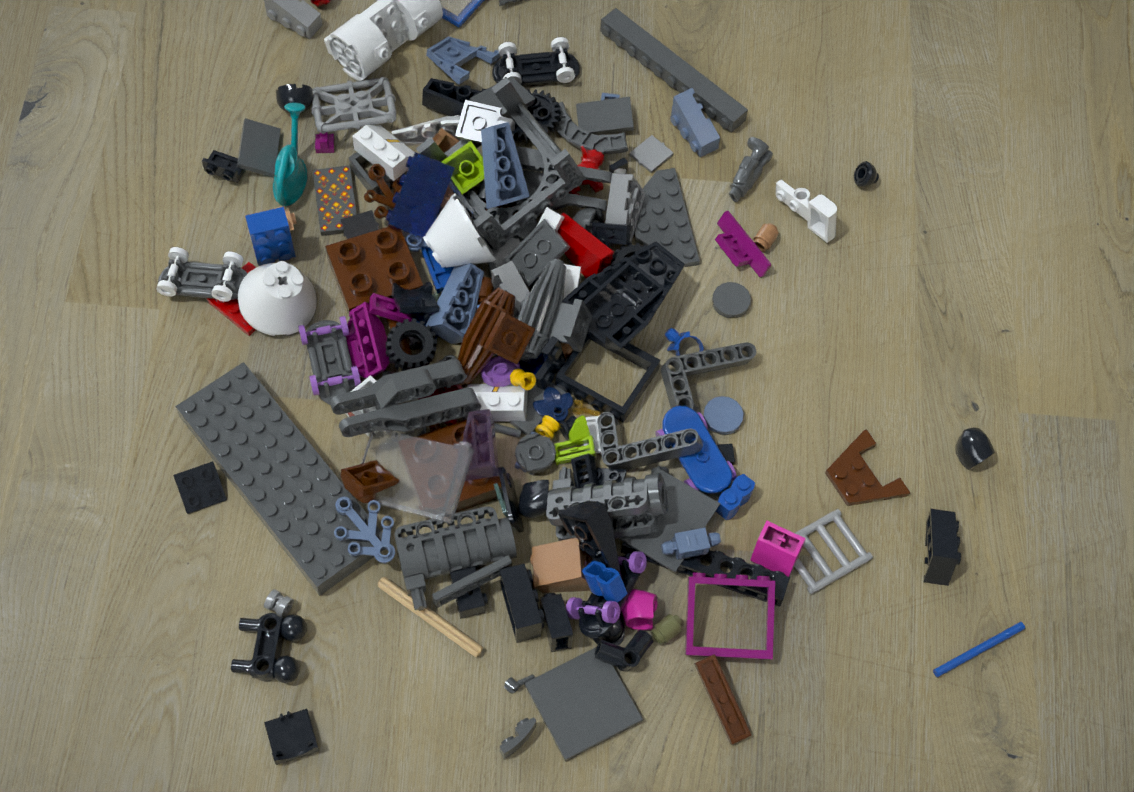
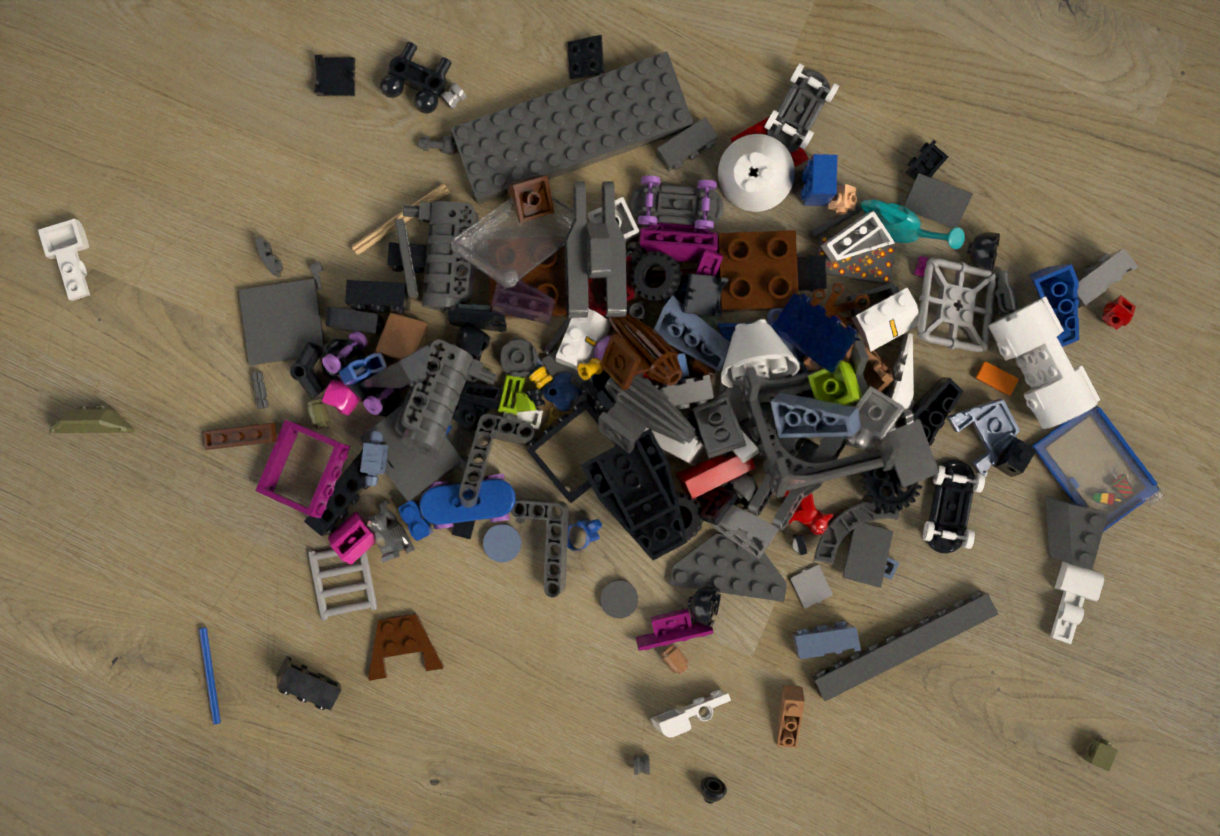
camera: 115 degrees right, 25 degrees up
(267, 367) = (687, 145): none -> dark grey brick
(307, 228) = (835, 221): none -> dark grey bar
(309, 36) = (1060, 288): none -> blue wedge
(316, 195) = (859, 237): none -> white wedge
(330, 76) = (1005, 294): none -> dark grey arm
(334, 593) = (448, 144): none -> dark grey bar
(366, 533) = (483, 182): sand blue plant -> none
(408, 65) = (996, 378): none -> orange tile
(474, 29) = (1016, 456): none -> black torso
(664, 700) = (260, 390): none -> dark grey axle
(706, 224) = (705, 605): none -> black cylinder
(750, 168) = (754, 674): dark grey piece -> none
(759, 512) = (390, 538): none -> dark grey animal
(774, 134) = (790, 715): none -> medium nougat slope
(871, 236) = (641, 764): none -> dark grey wheel
(973, 447) = (386, 757): black piece -> none

